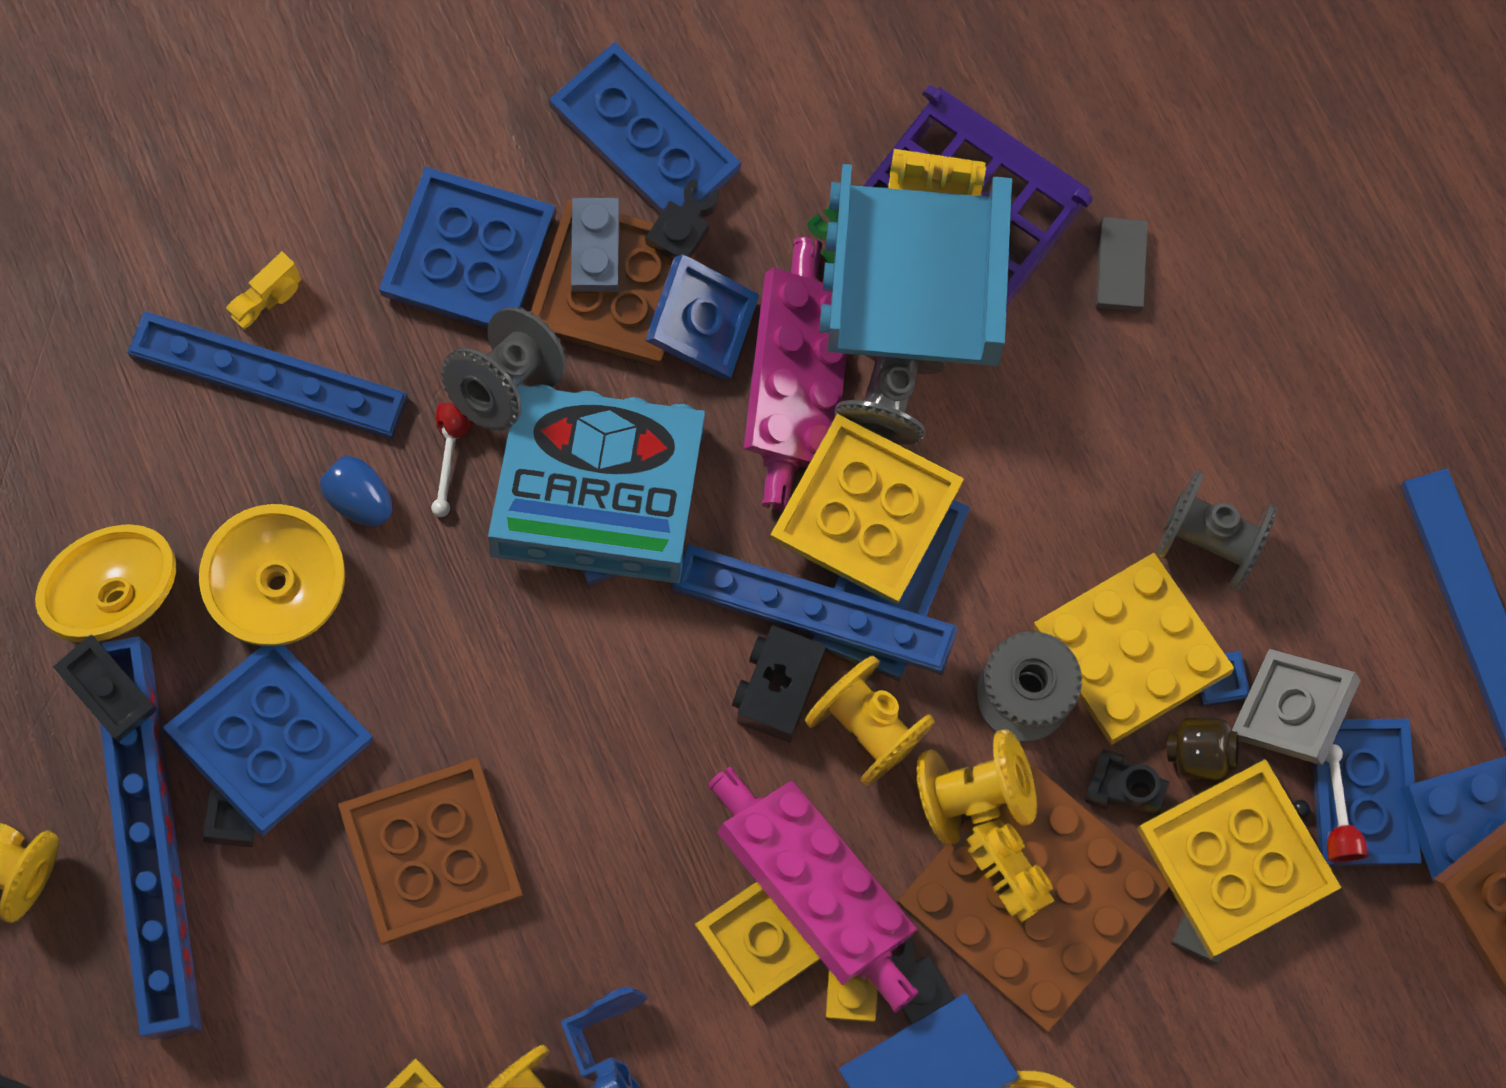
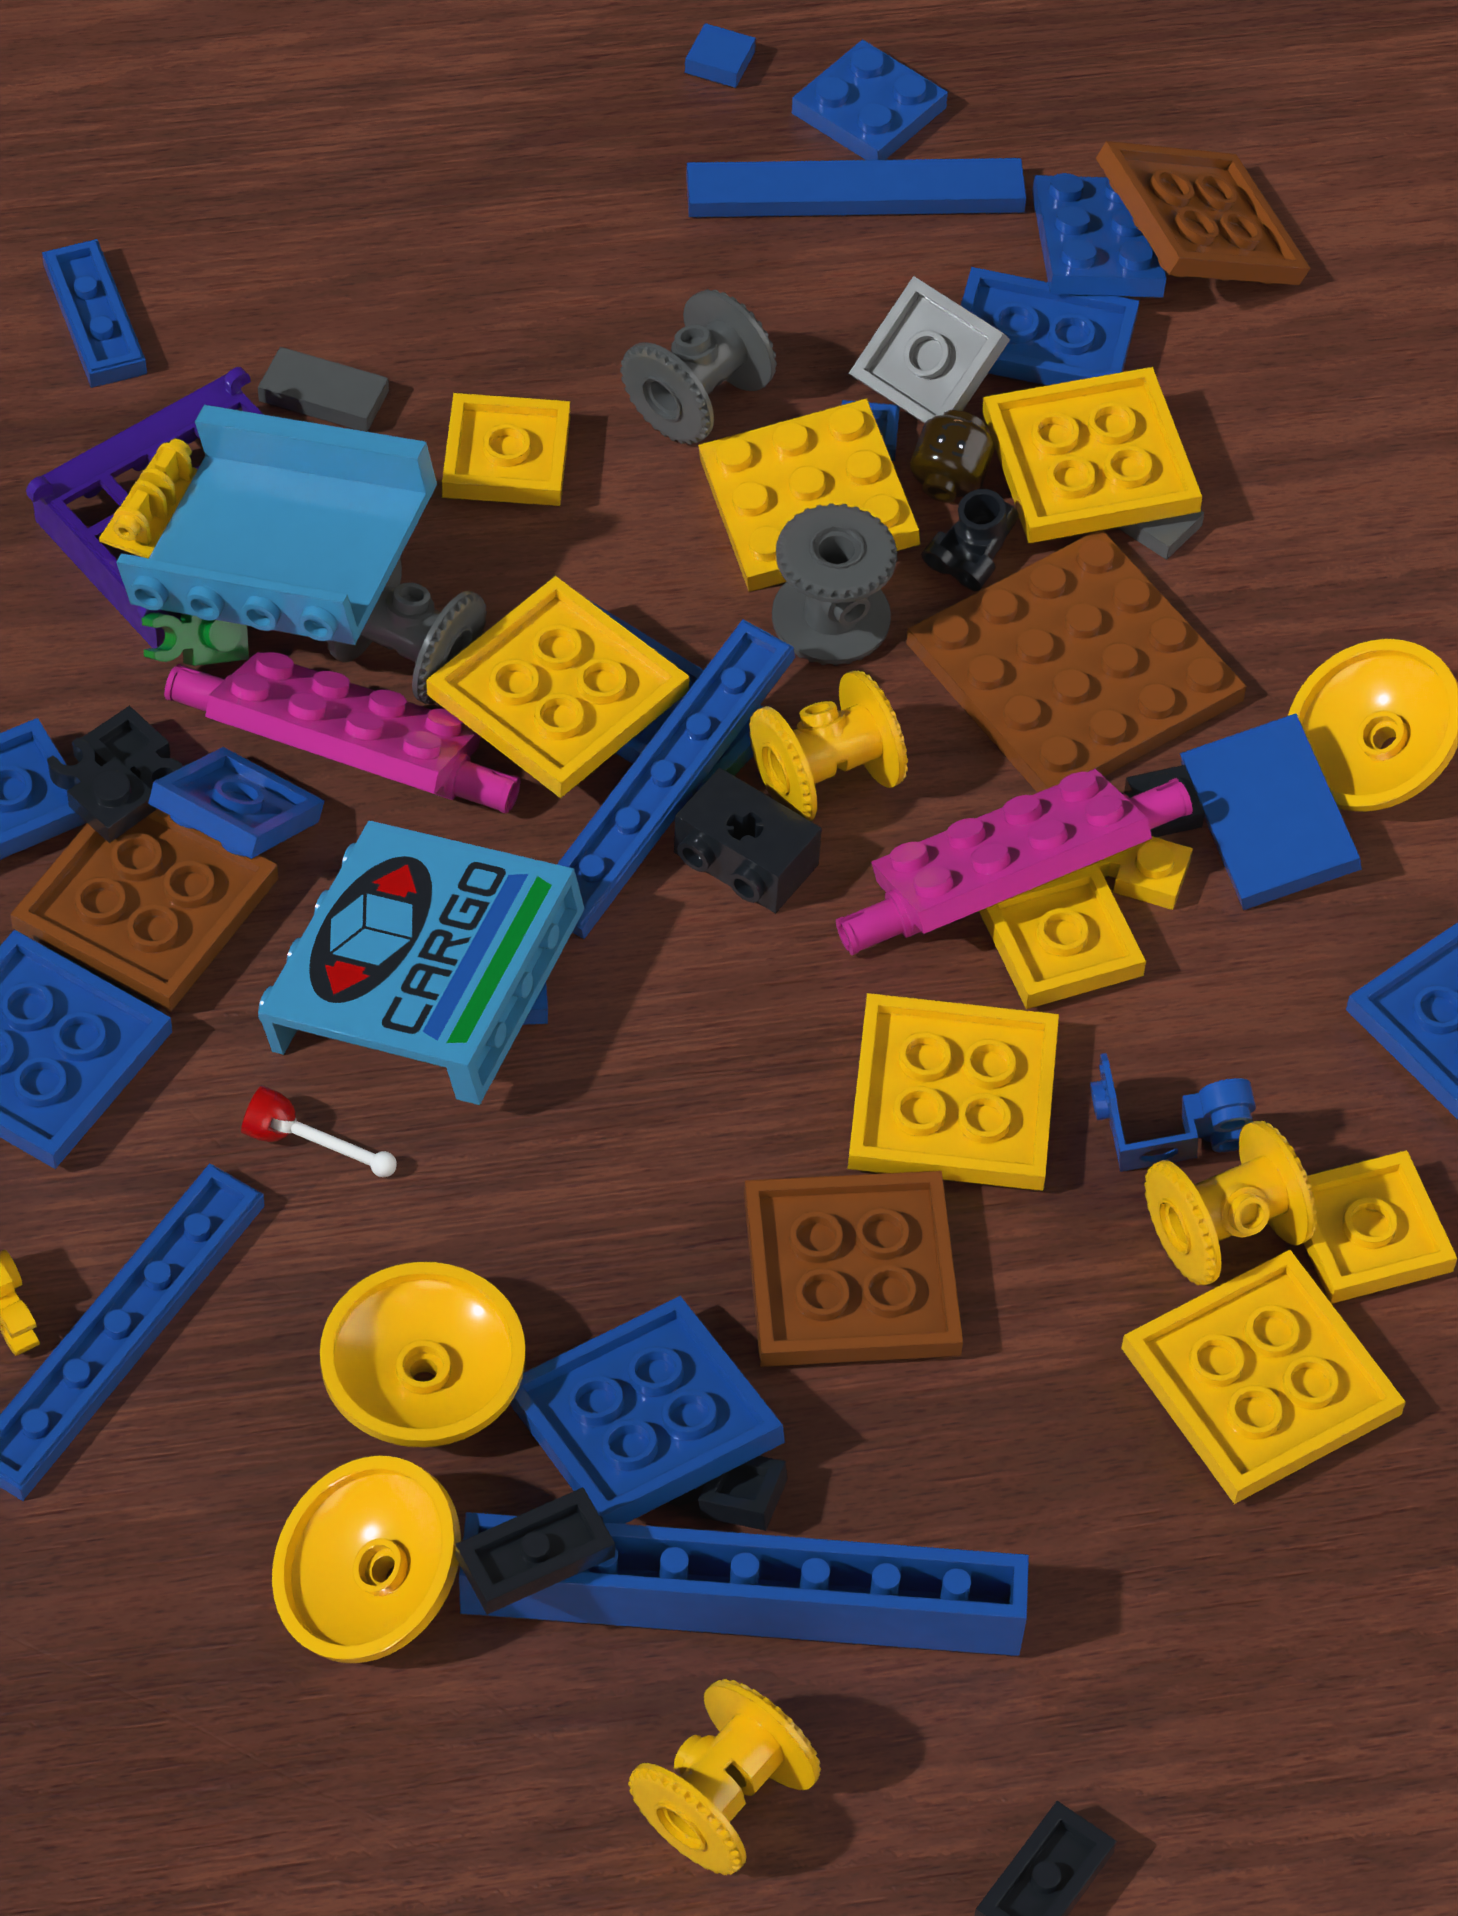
camera: 75 degrees left, 20 degrees down
(356, 492) = (332, 1243): blue animal -> none
(487, 384) = (242, 1019): dark grey hose -> none
(595, 245) = (91, 891): sand blue plate -> none
(600, 889) = (954, 1091): none -> yellow plate
(734, 234) = (134, 745): none -> black plate
(979, 792) = (952, 653): yellow hose -> none
(1003, 846) = (1069, 638): yellow hinge -> none
(1102, 412) = (506, 449): none -> yellow plate
(1141, 81) = (94, 313): none -> blue tile
(1345, 841) = (1100, 347): red hinge -> none

